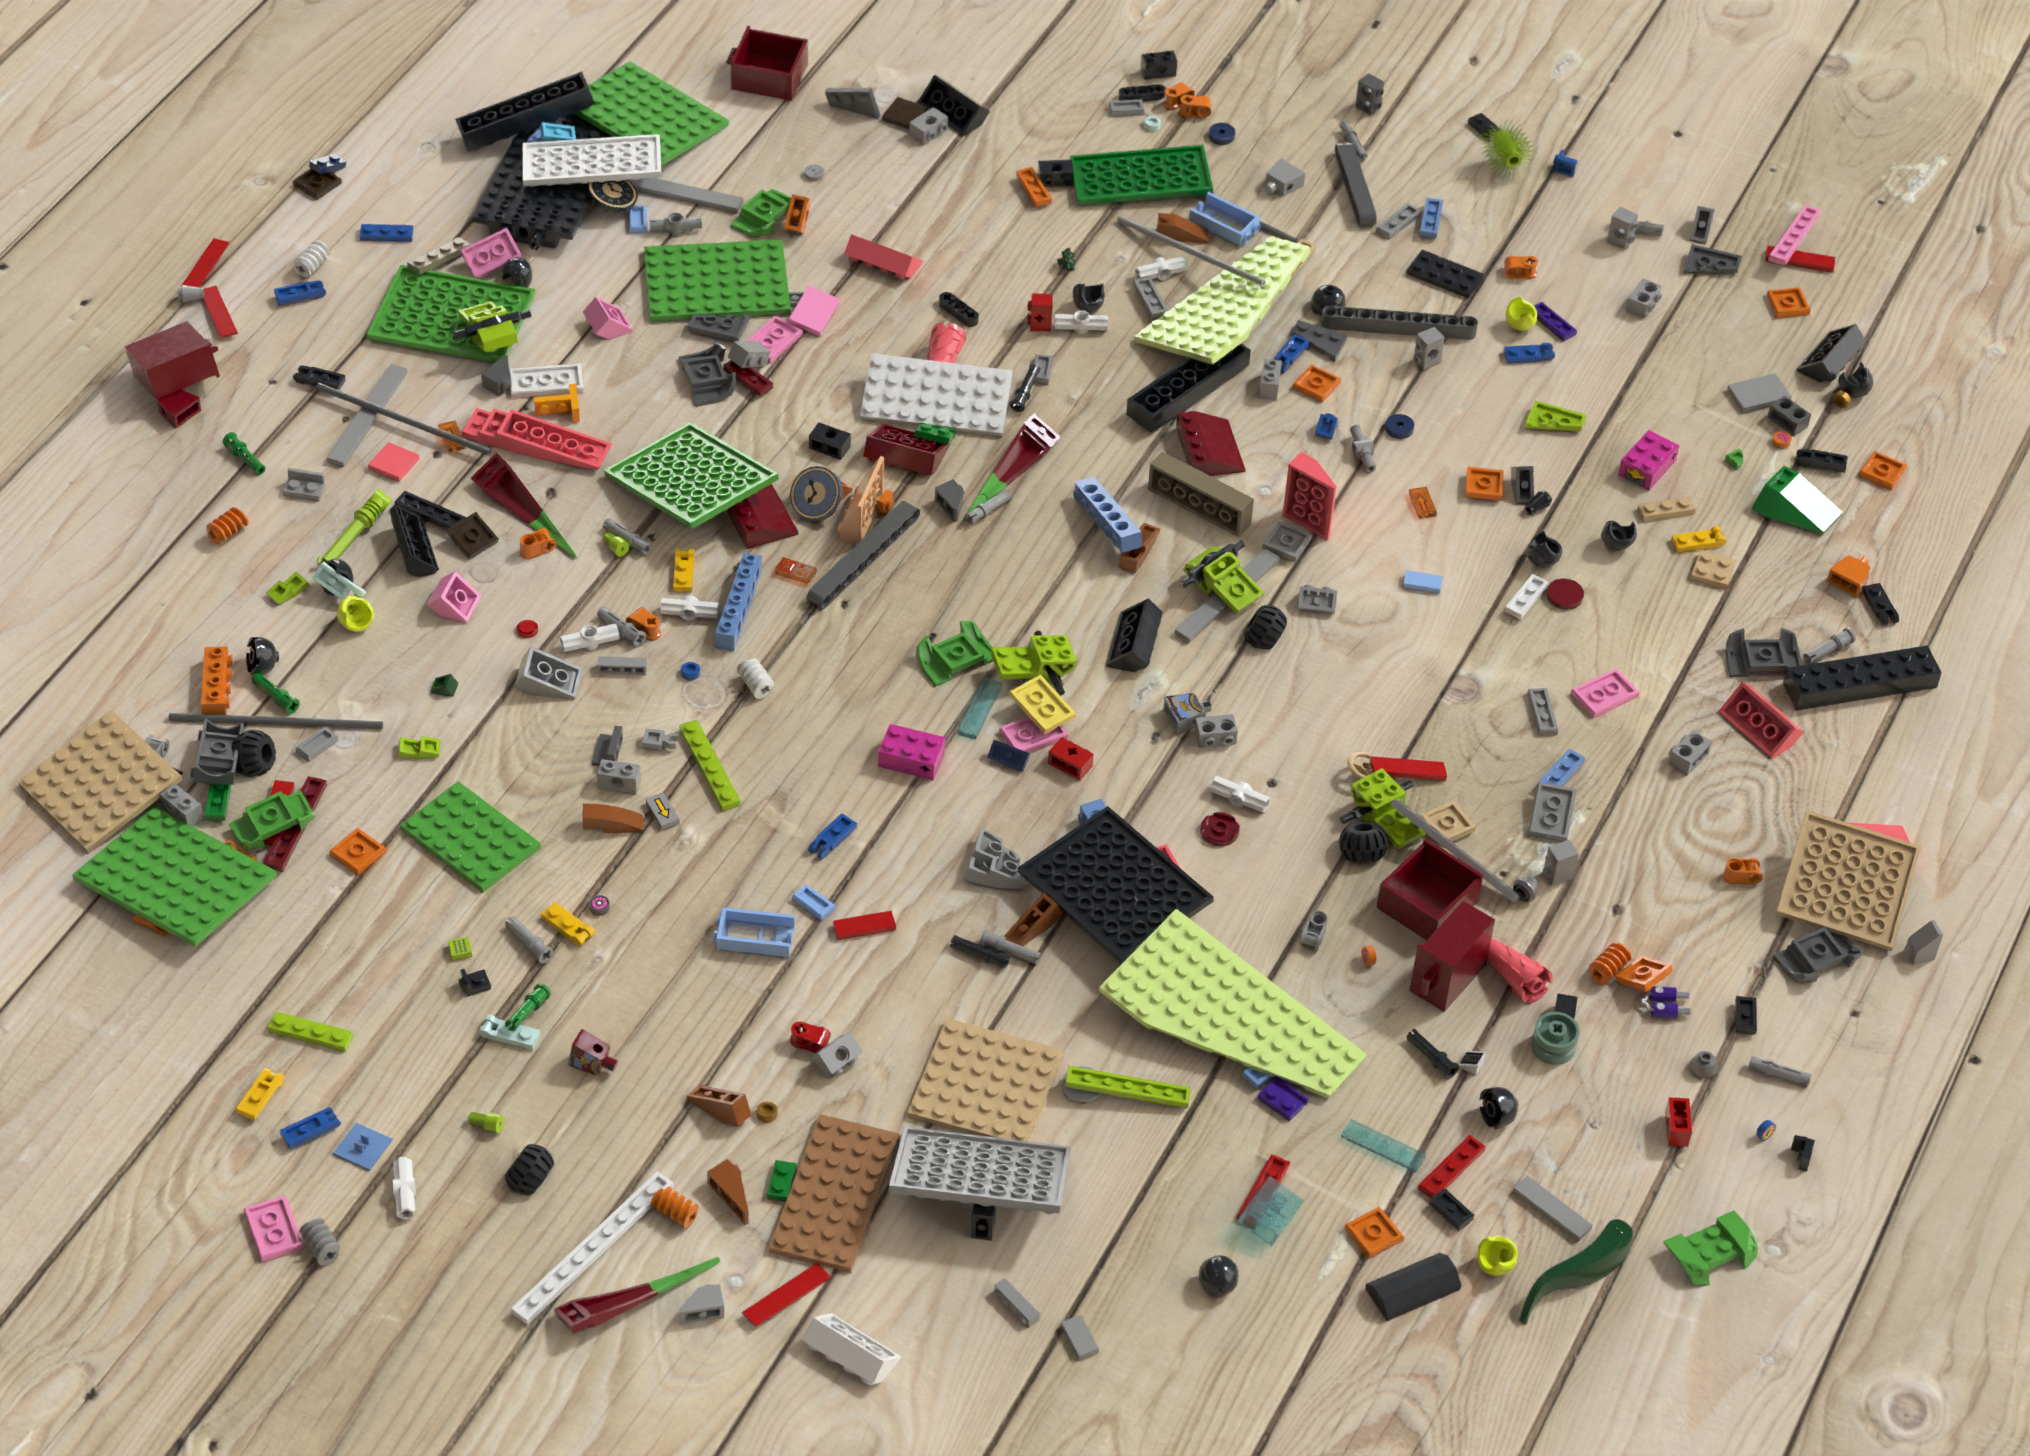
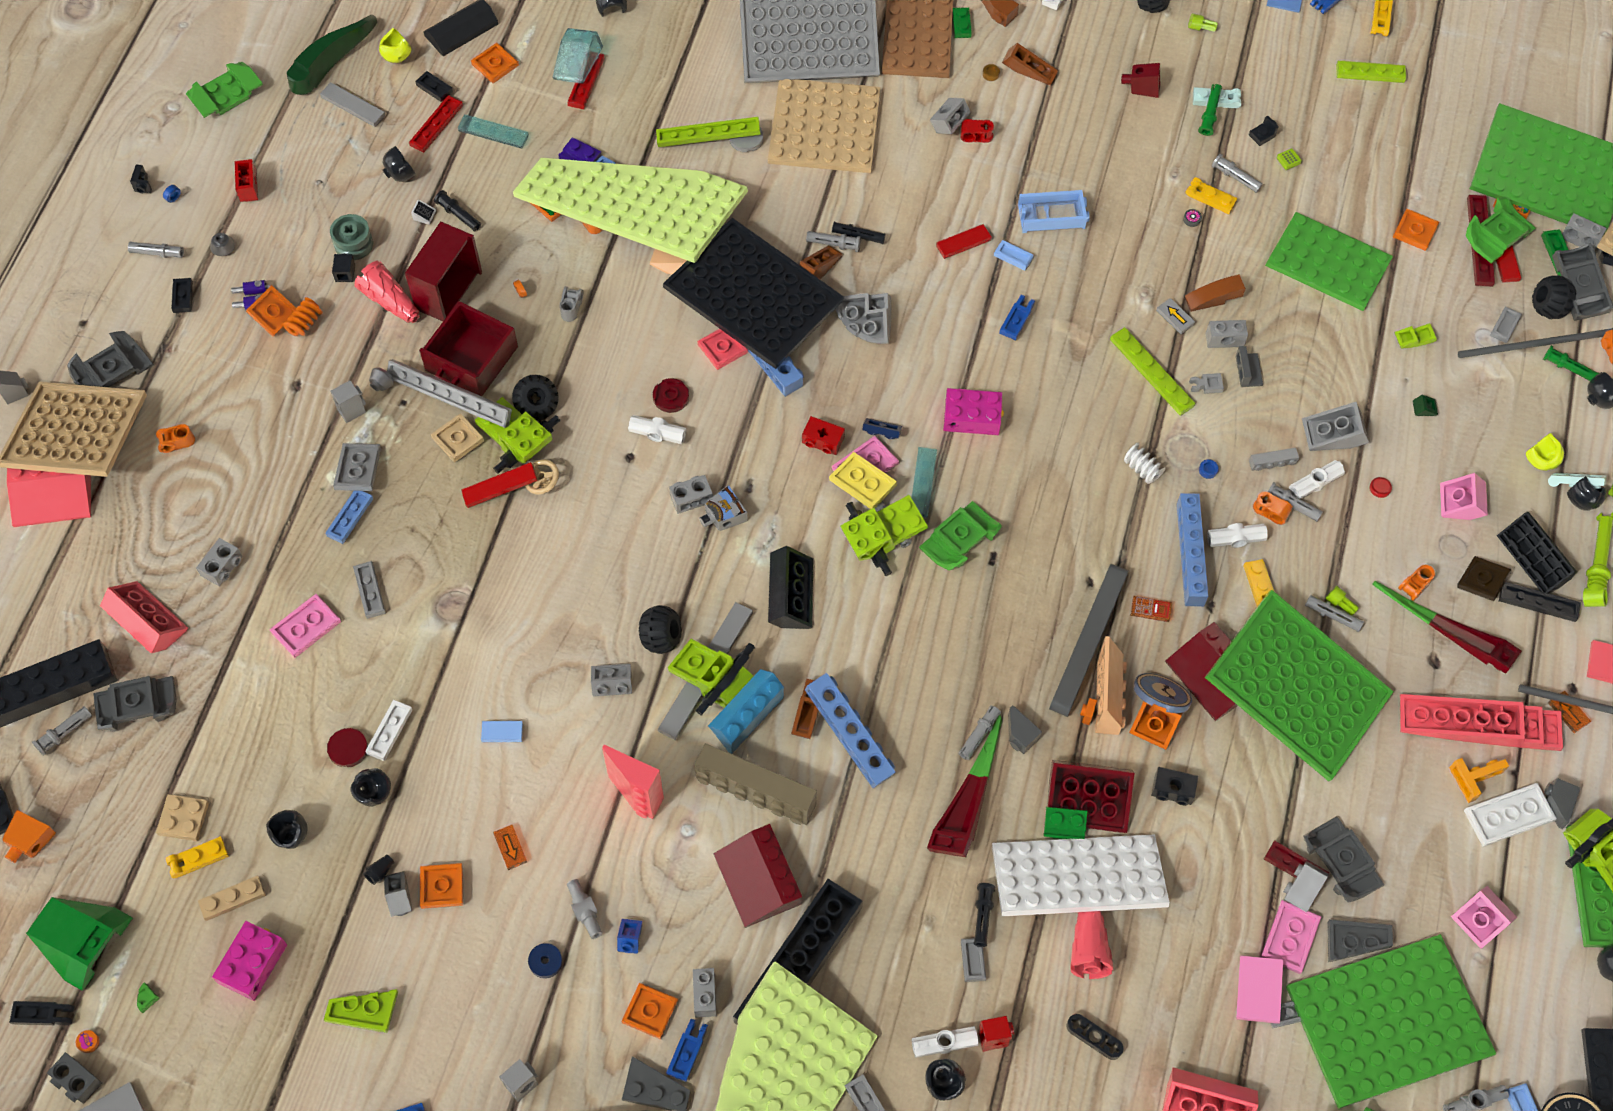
camera: 170 degrees right, 15 degrees up
(1196, 540) = (747, 709): none -> dark azure slope
(1287, 541) = (655, 749): light grey plate -> none

